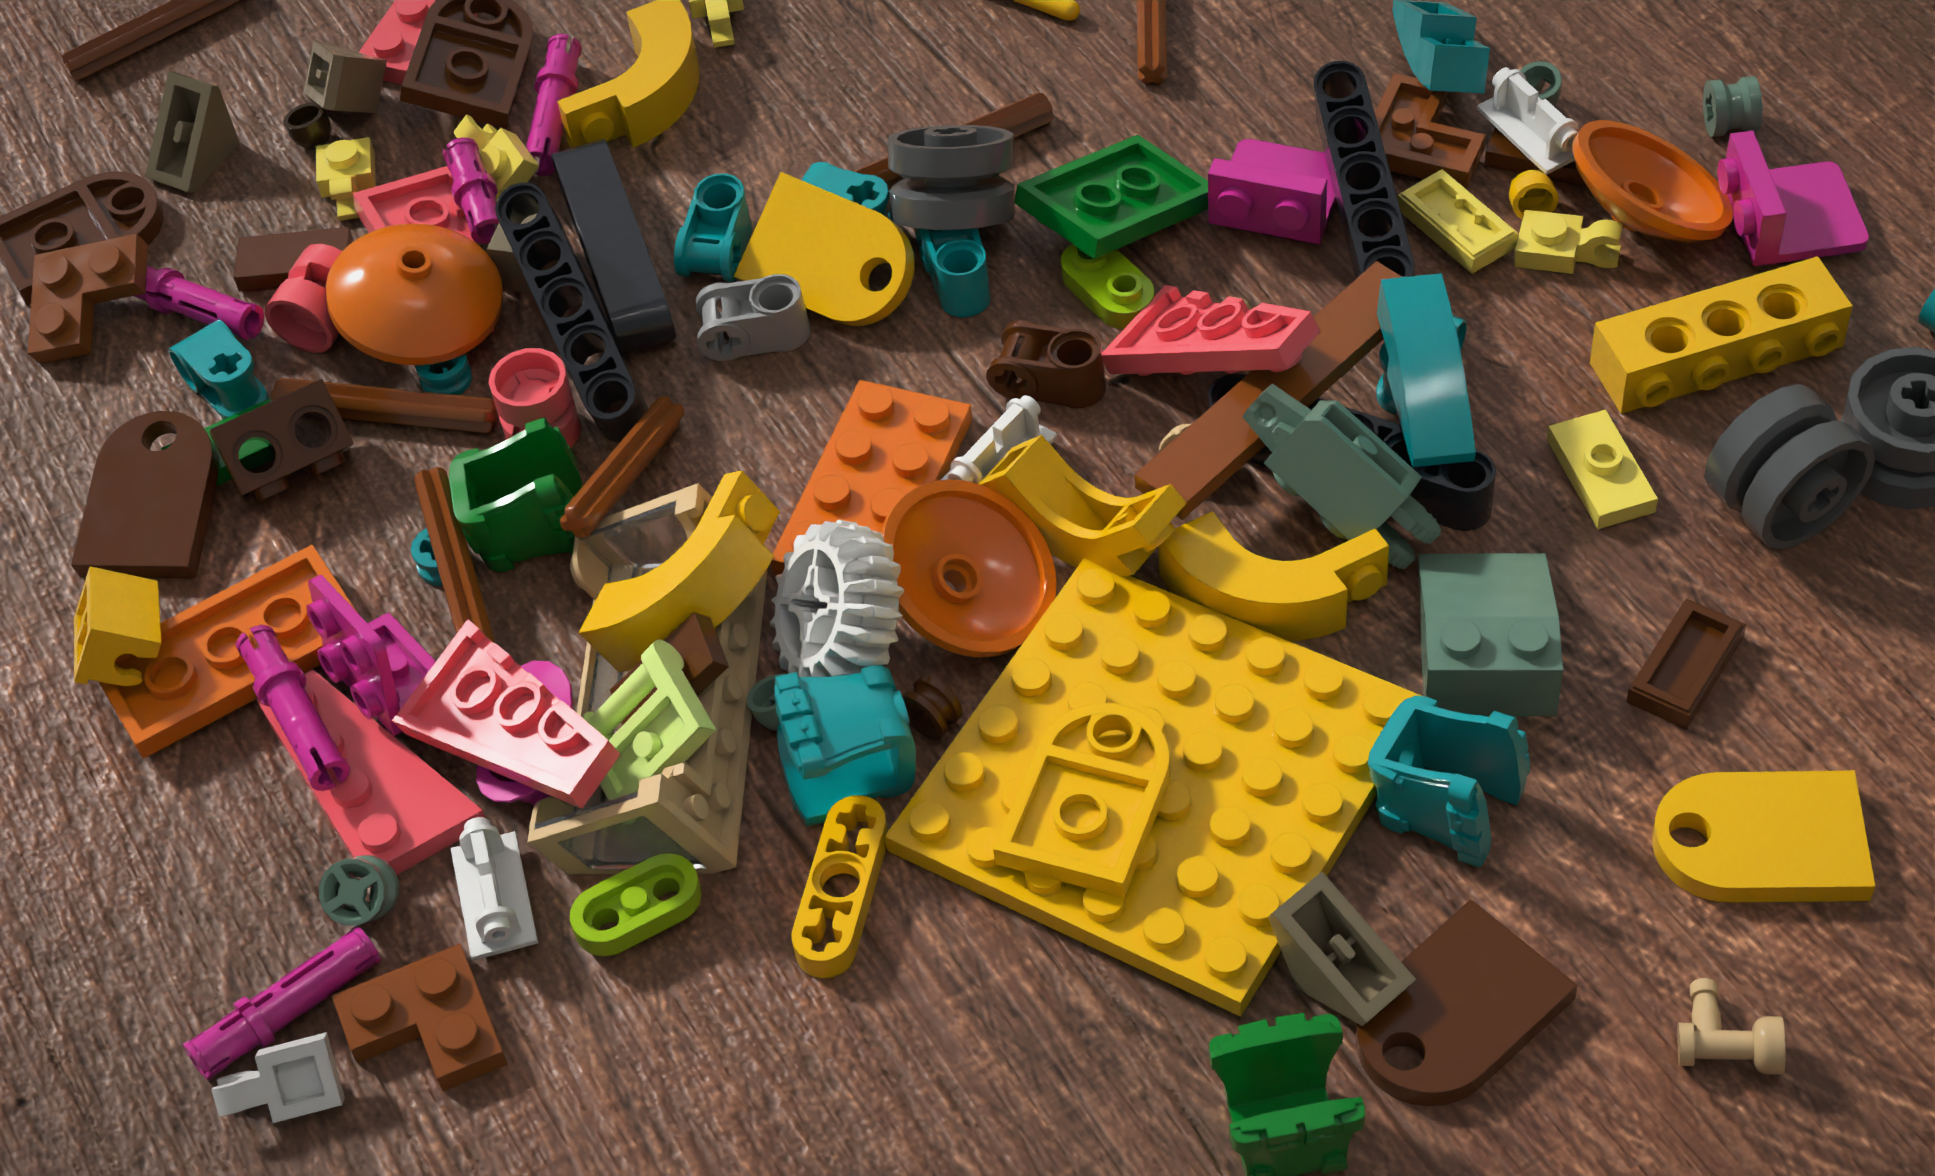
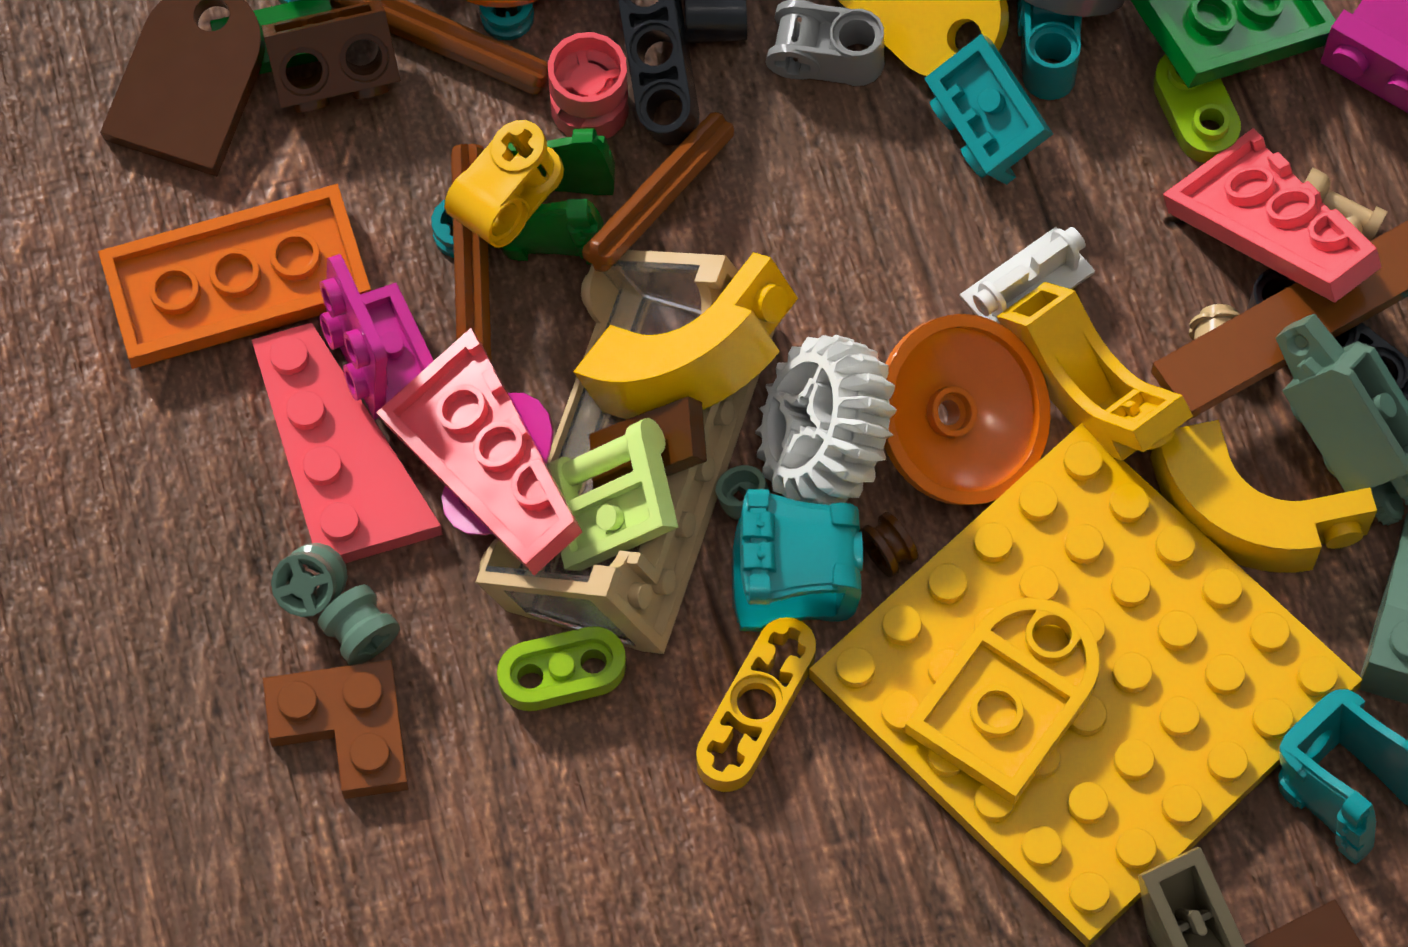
camera: 10 degrees right, 15 degrees up
(113, 619) = (132, 225): yellow hinge -> none
(258, 1019) = (198, 678): dark pink pin -> none
(282, 688) = (279, 347): dark pink pin -> none
(290, 1077) = (209, 751): white plate -> none
(419, 918) = (358, 625): none -> sand green wheel
(469, 485) = (505, 189): none -> yellow piece
(492, 890) = (432, 613): white hinge -> none
(877, 455) = (903, 260): orange plate -> none
(915, 321) = (988, 109): none -> teal bracket
(1053, 365) = (1099, 182): reddish brown piece -> none

